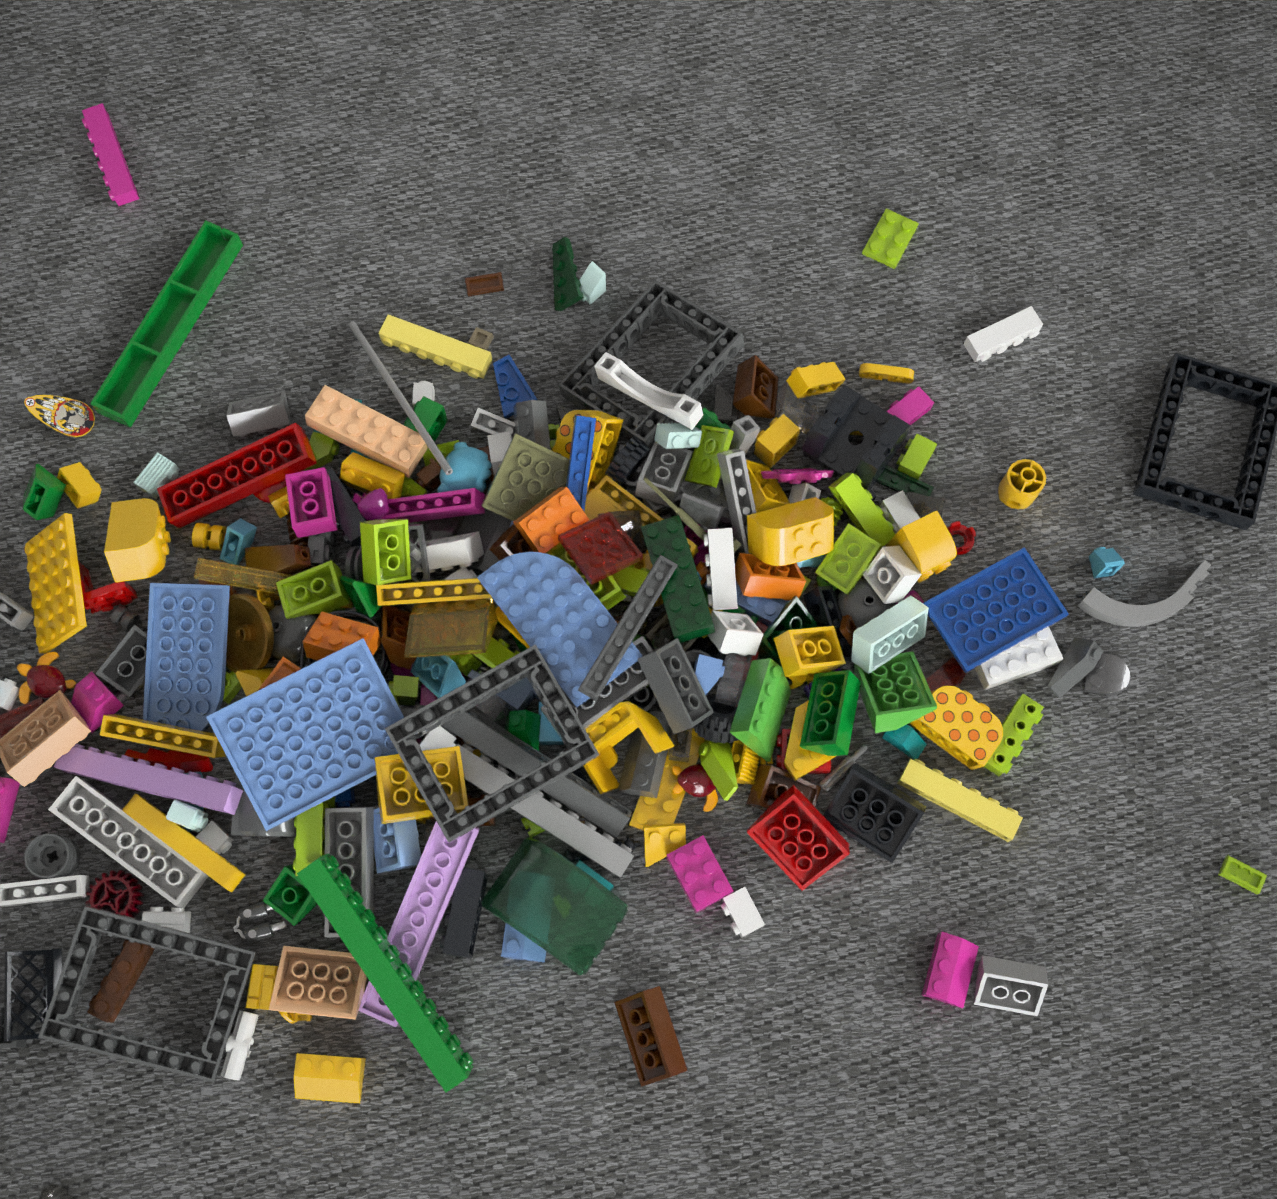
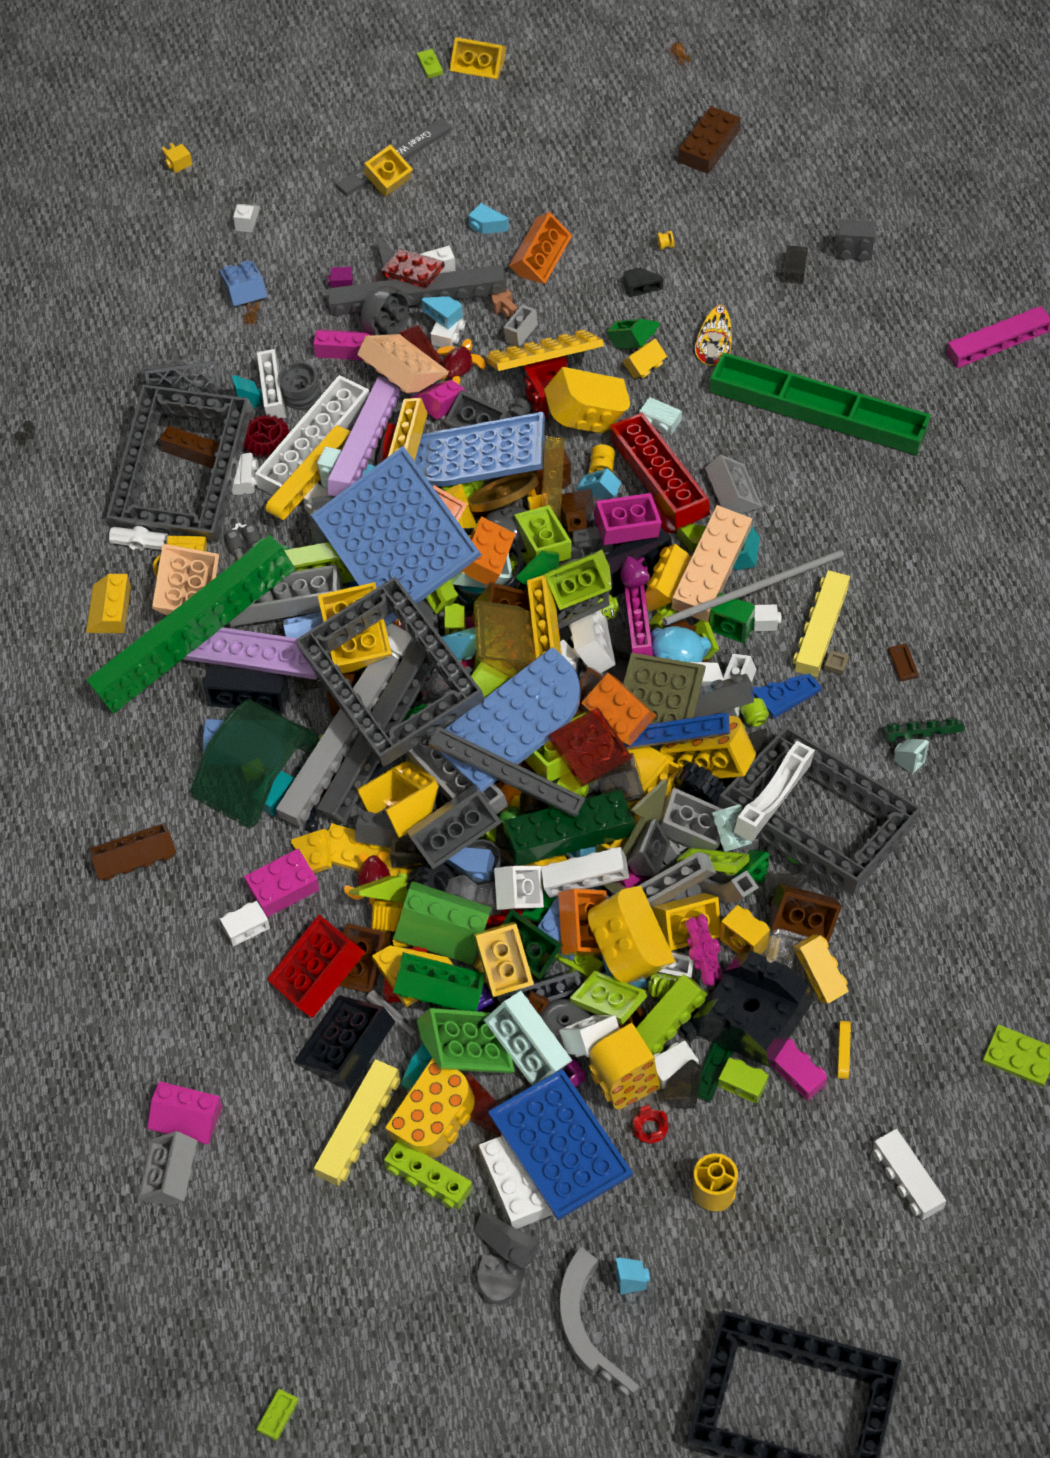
camera: 90 degrees right, 15 degrees down
(50, 920) = (247, 389): none -> teal slope

